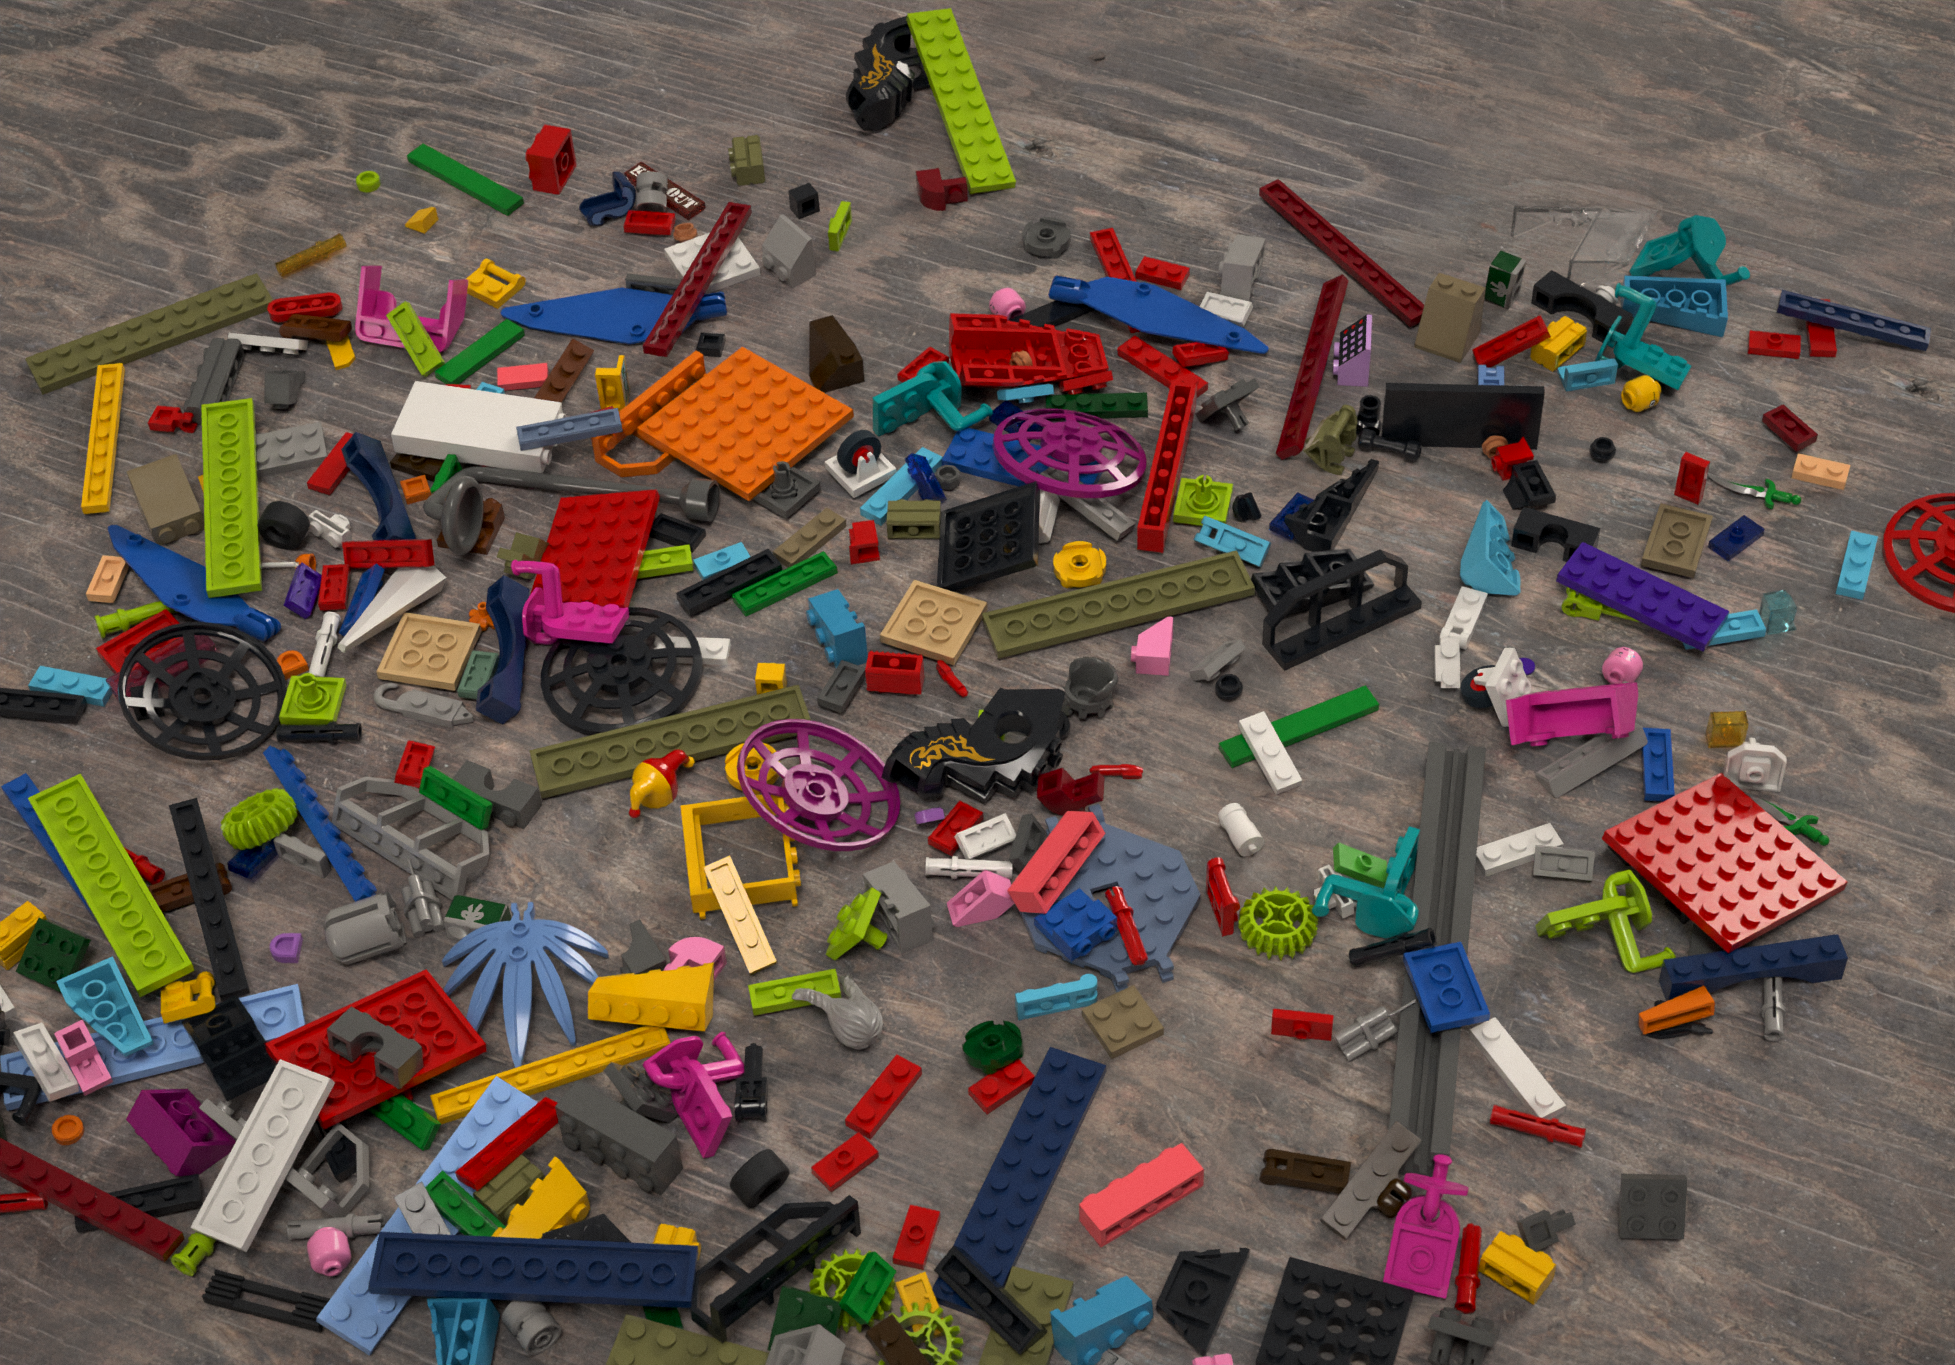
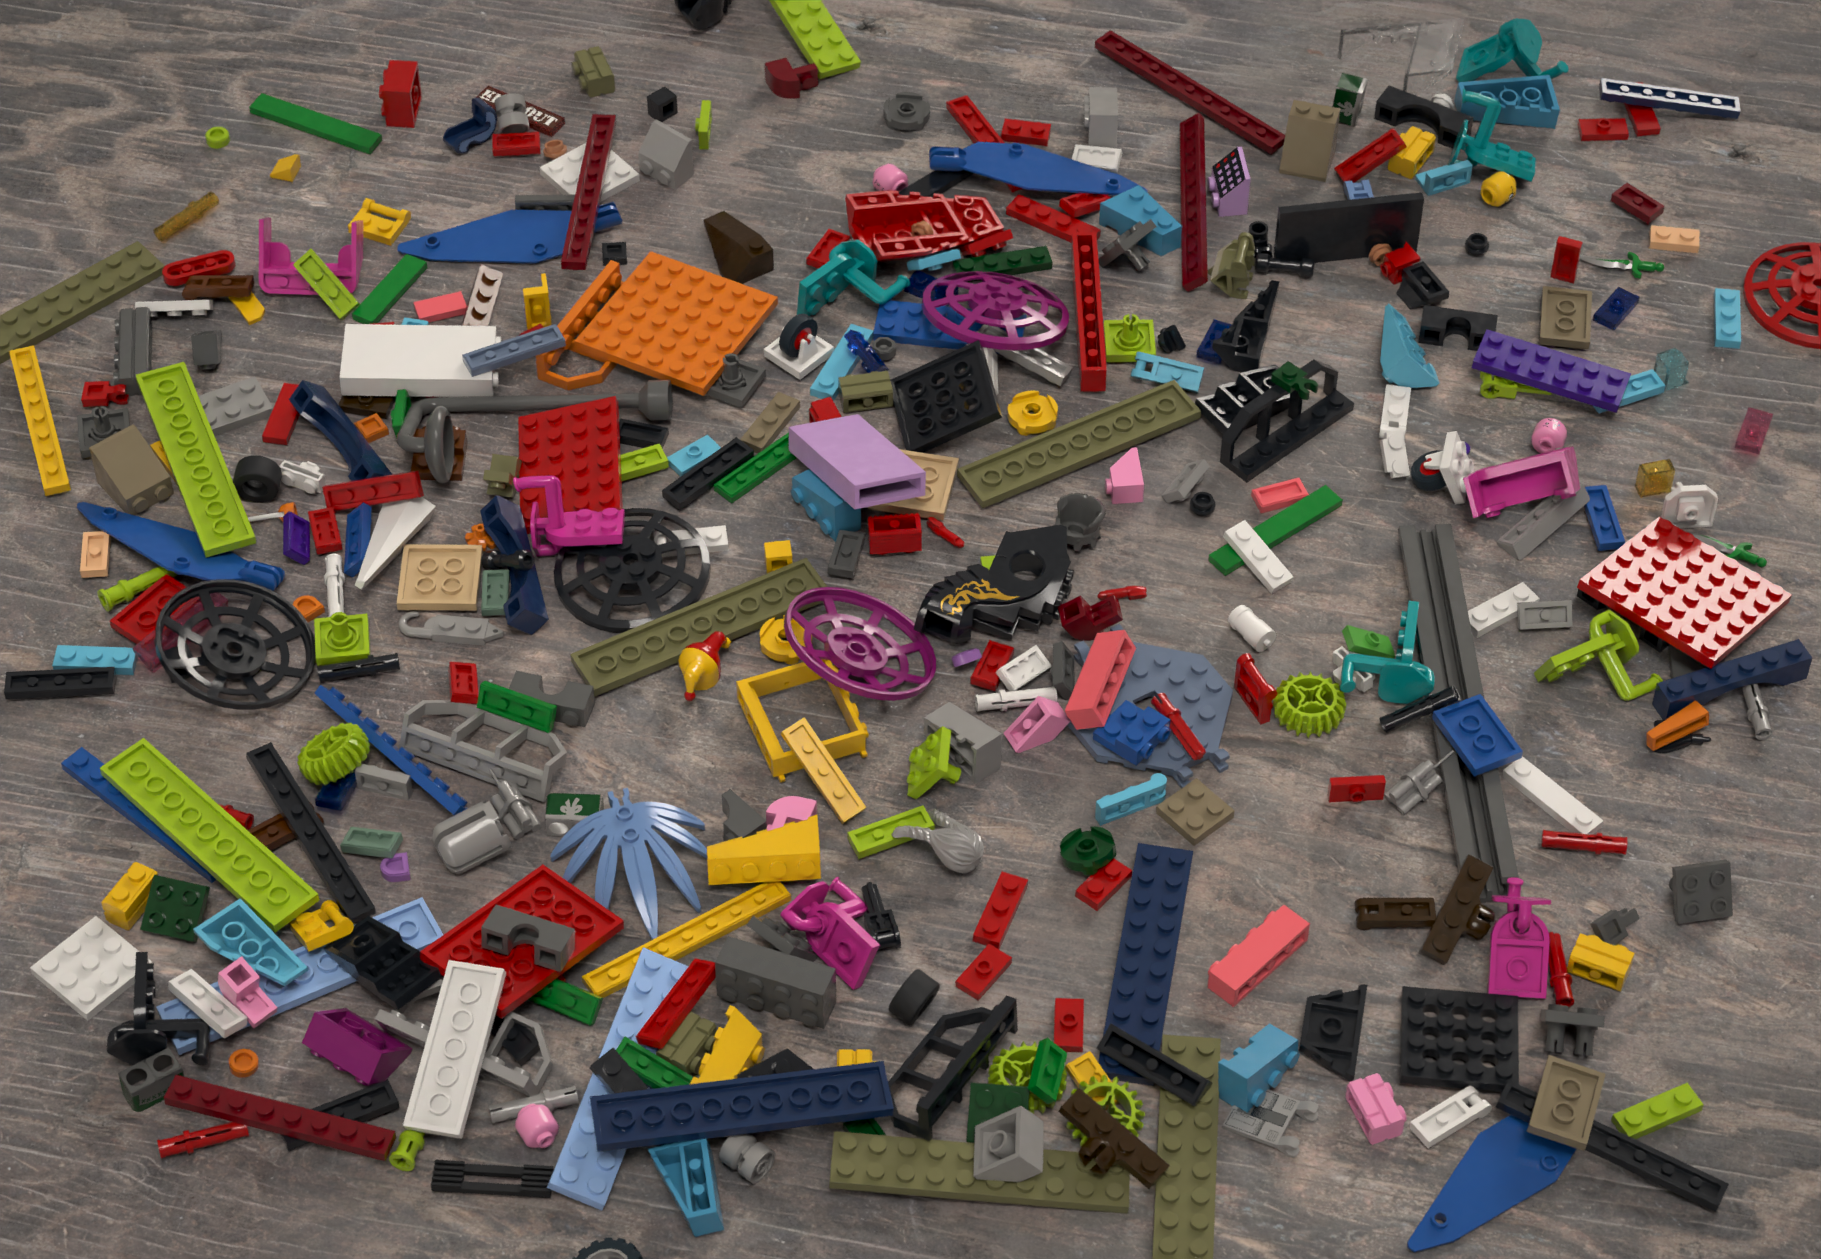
camera: 15 degrees left, 0 degrees up
(155, 448) = (99, 426): none -> dark grey plate
(269, 917) = (371, 842): none -> sand green plate
(506, 645) = (521, 560): none -> black piece
(874, 591) = (857, 461): none -> lavender brick
(1250, 363) = (1137, 205): none -> dark azure wedge
(1313, 689) = (1279, 495): none -> coral tile
(1350, 566) = (1293, 378): none -> dark green plate
(1852, 692) = (1753, 430): none -> clear pink plate

